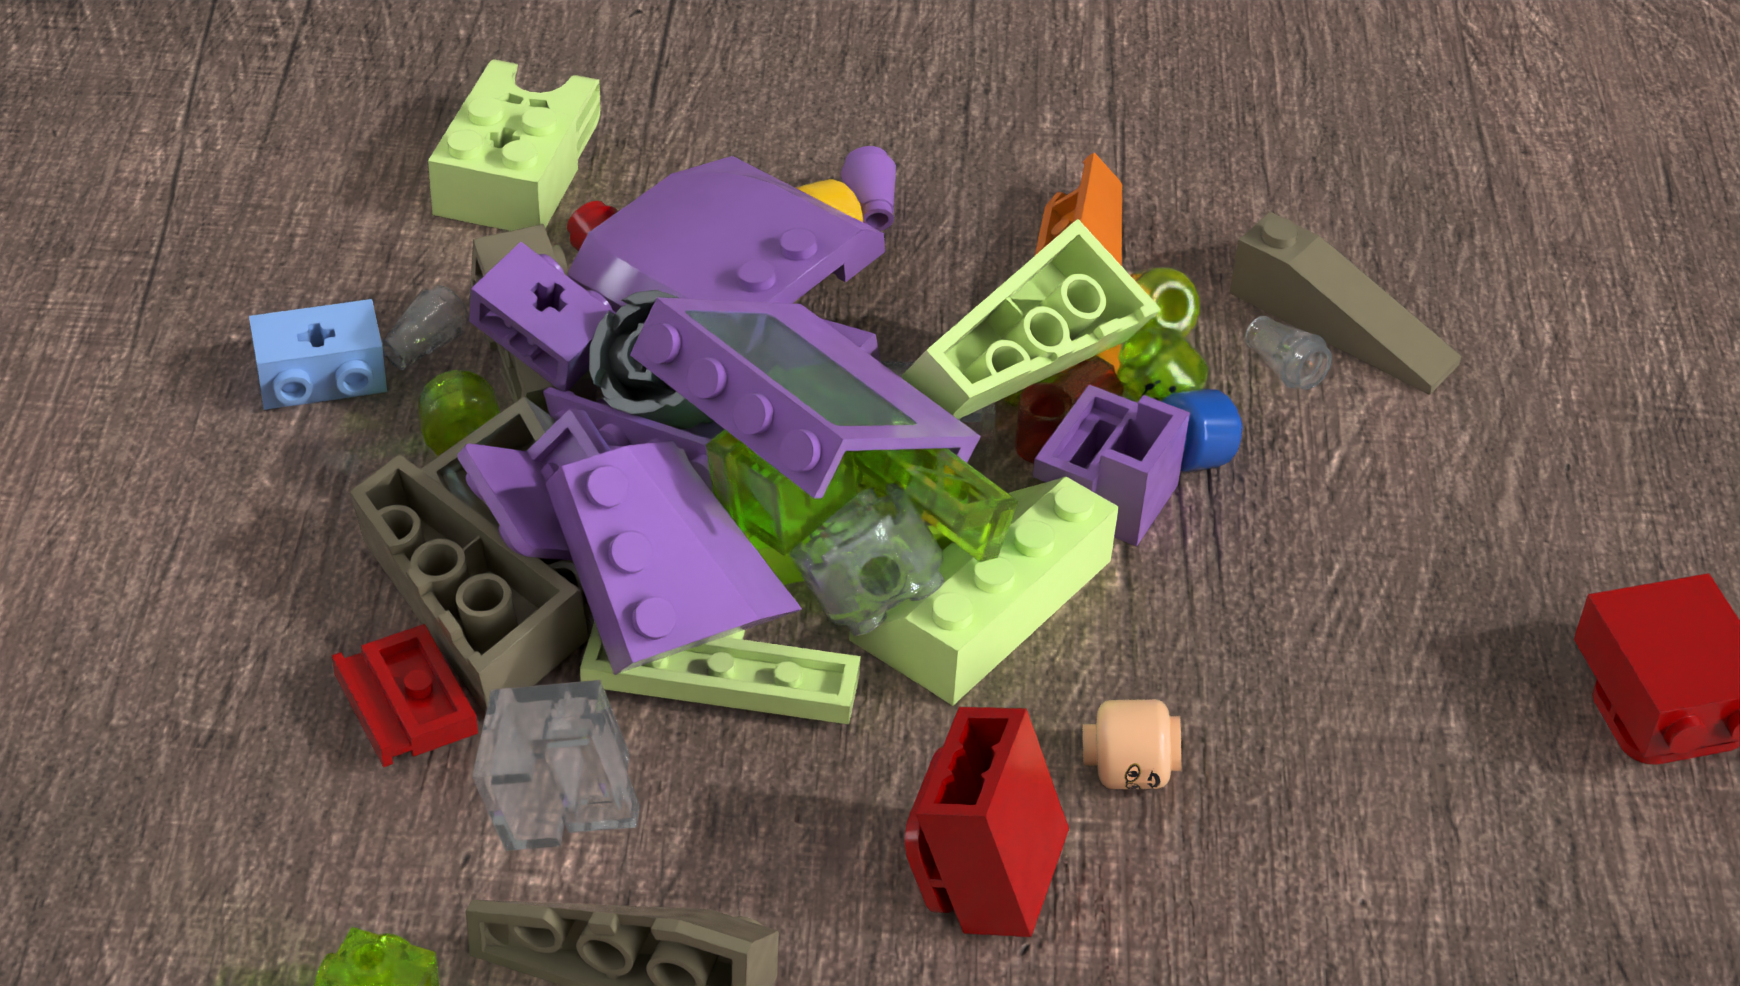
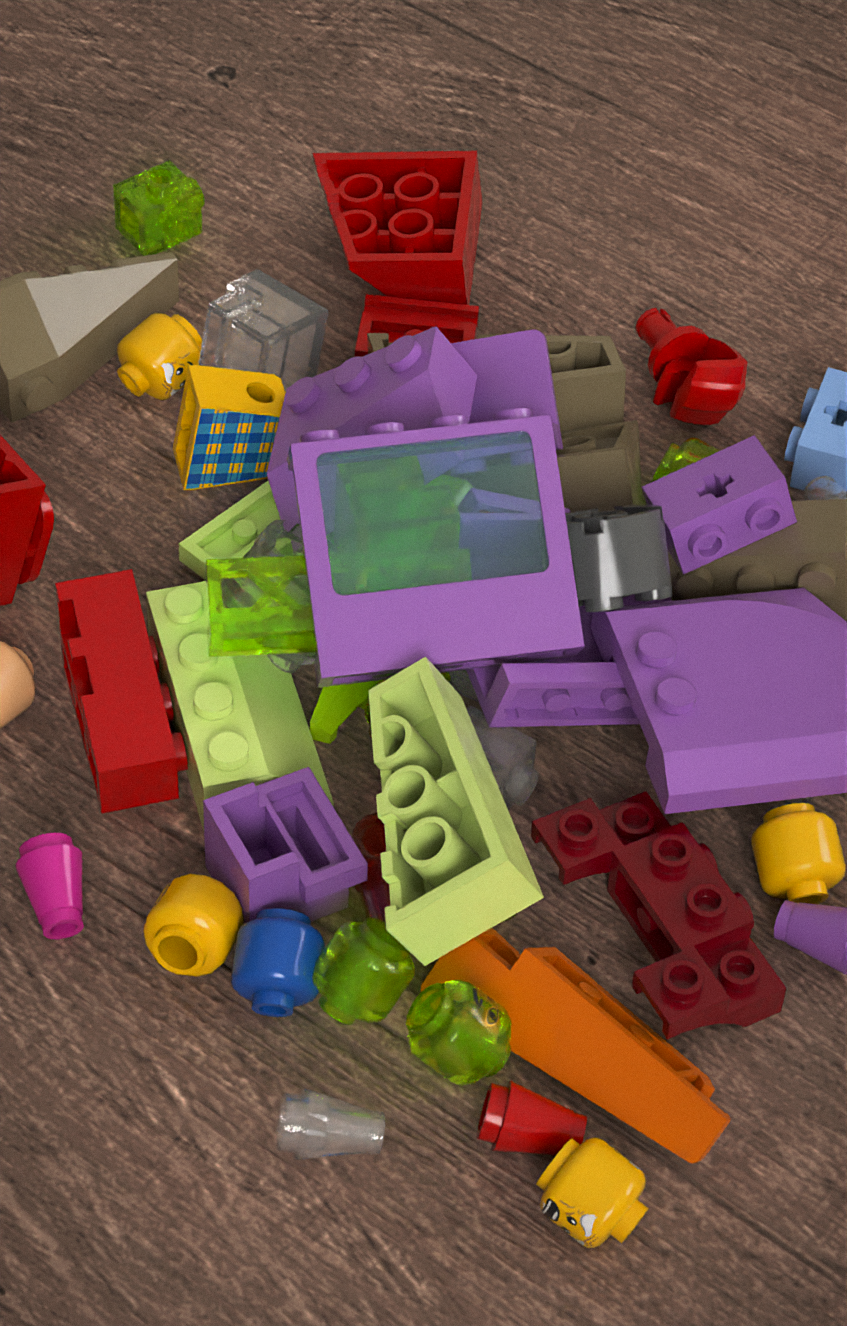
camera: 125 degrees right, 5 degrees up
(247, 748) = (406, 219): none -> red wedge
(311, 468) = (691, 370): none -> red piece
(608, 864) = (158, 355): none -> yellow head
(681, 734) = (226, 426): none -> torso
(931, 254) = (678, 907): none -> dark red bracket
(1063, 639) = (117, 692): none -> red wedge
(1167, 250) = (526, 1121): none -> red cone
(1197, 209) = (592, 1192): none -> yellow head
(1216, 490) = (193, 925): none -> yellow head
(1262, 598) = (53, 882): none -> dark pink cone
(1325, 294) = (388, 1236): dark tan wedge -> none

